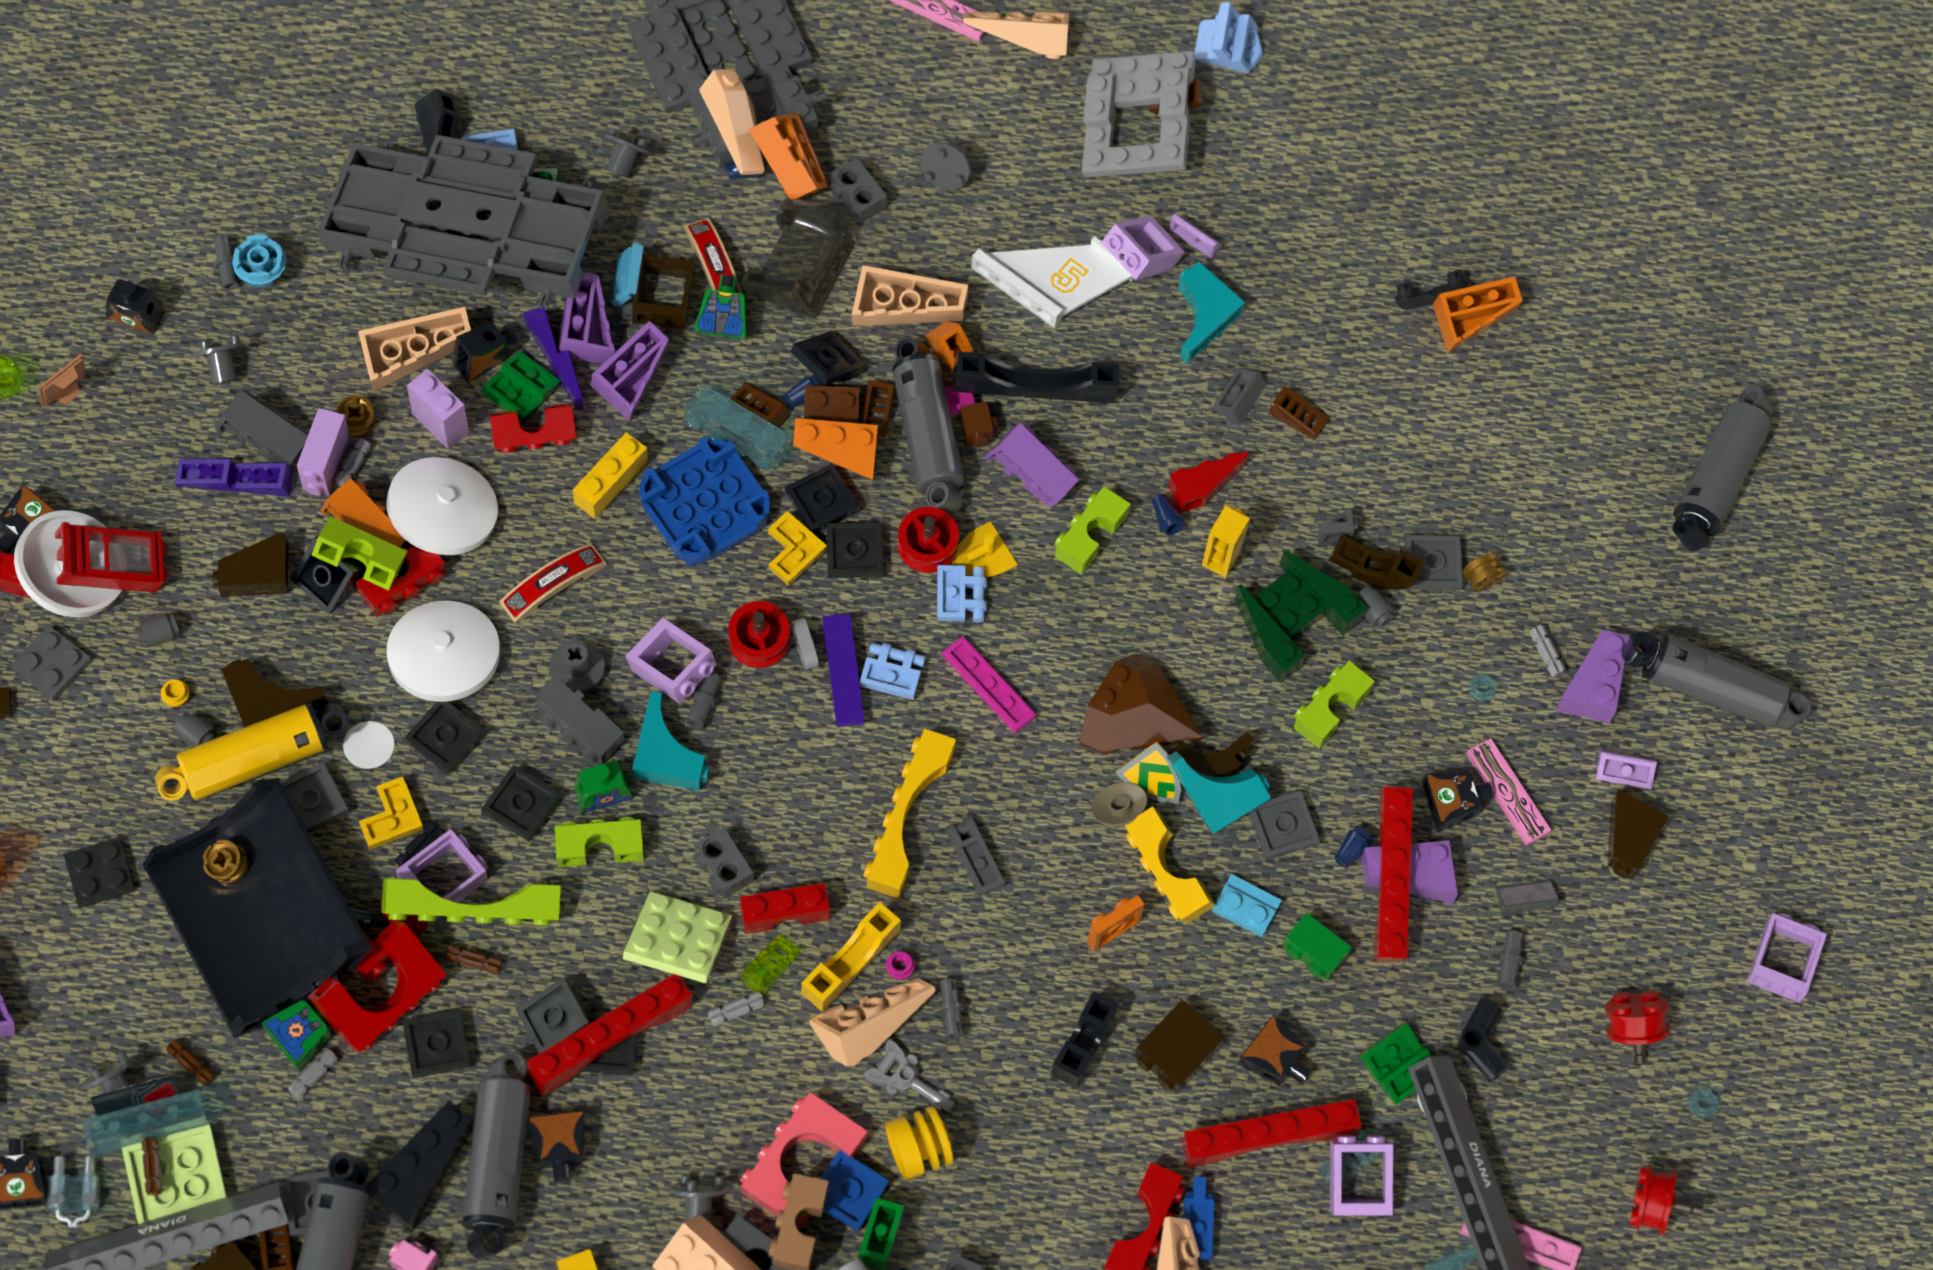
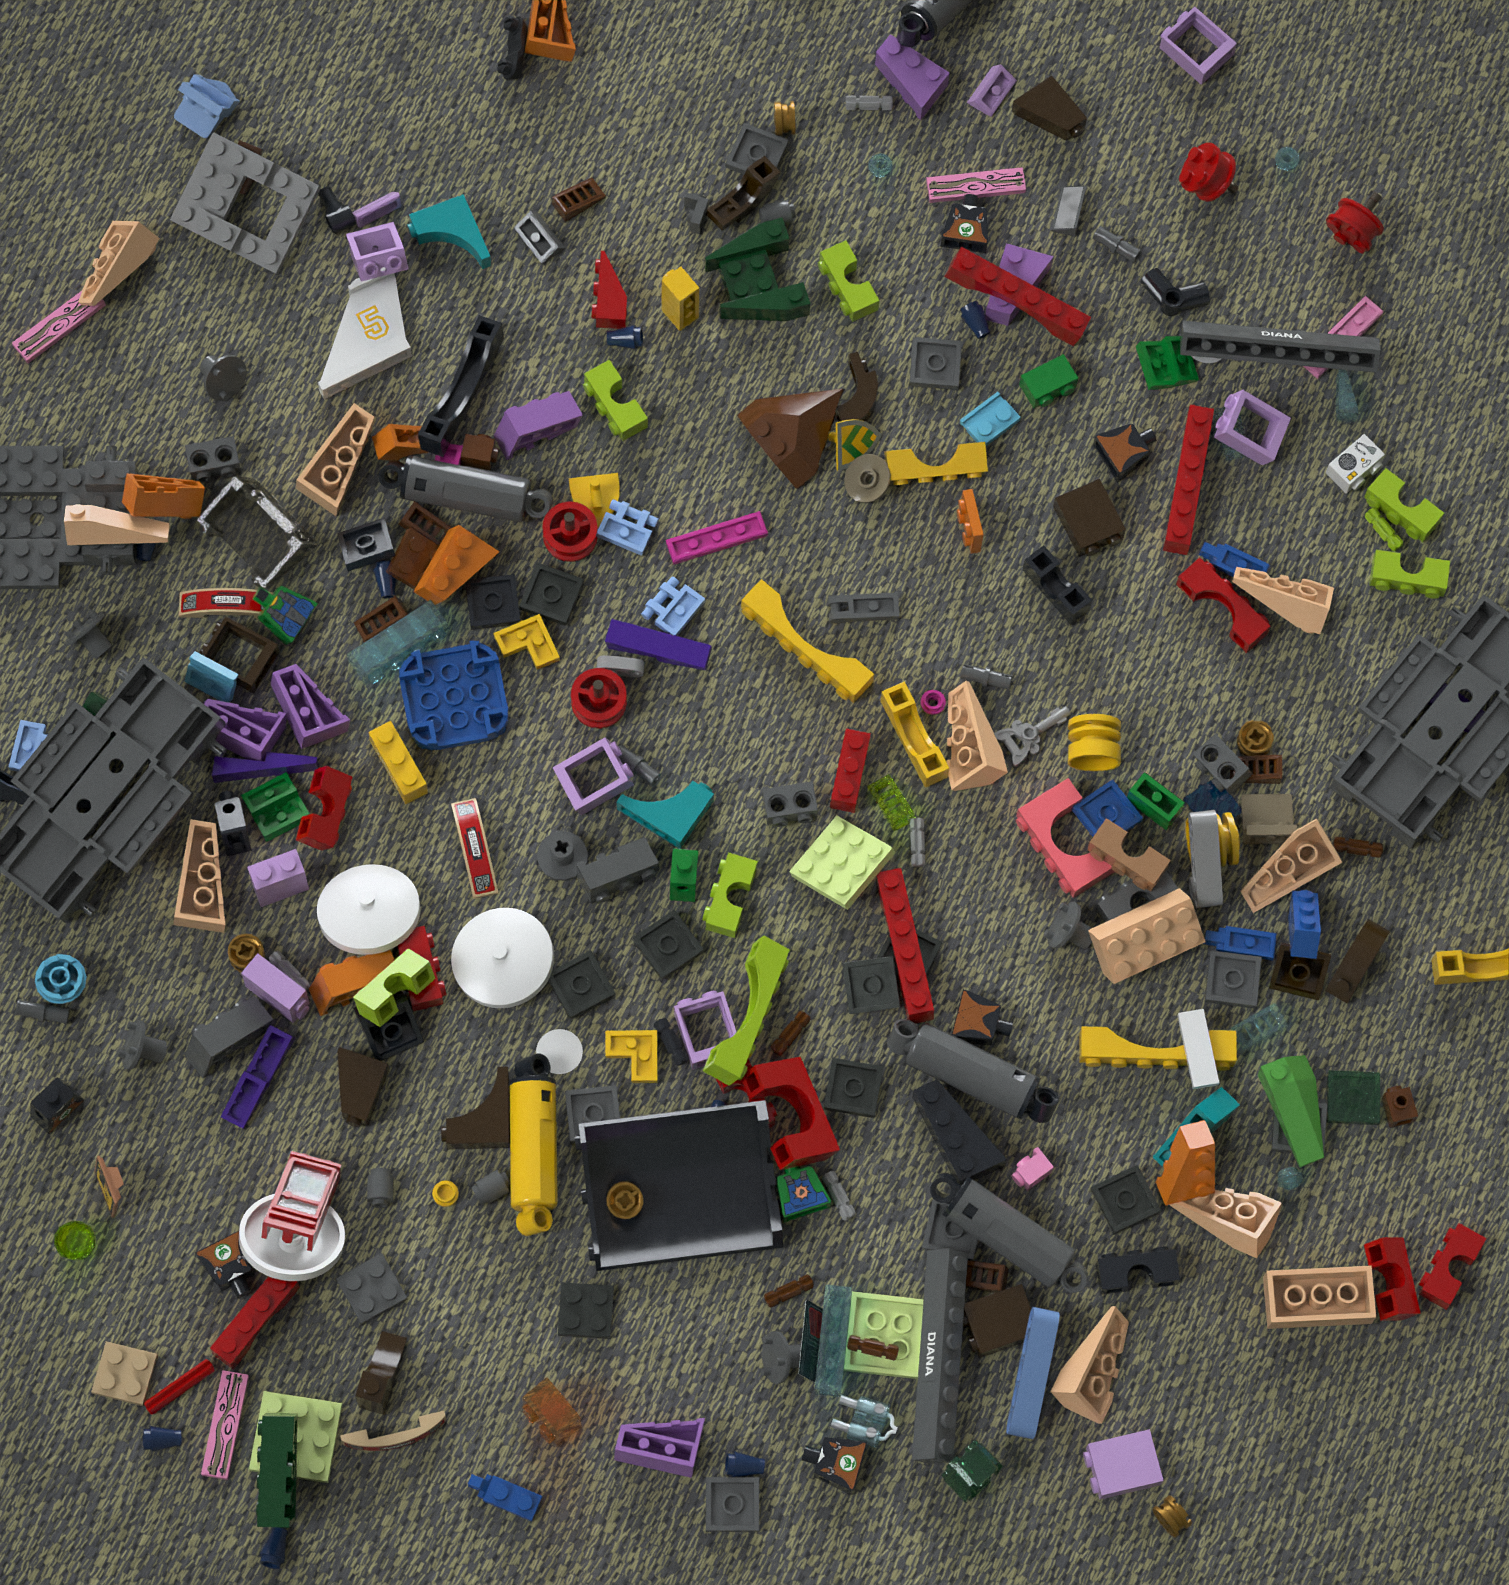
camera: 65 degrees left, 5 degrees up
(1172, 202) = (337, 215): none -> black pin
(1220, 798) = (898, 396): teal arch -> none

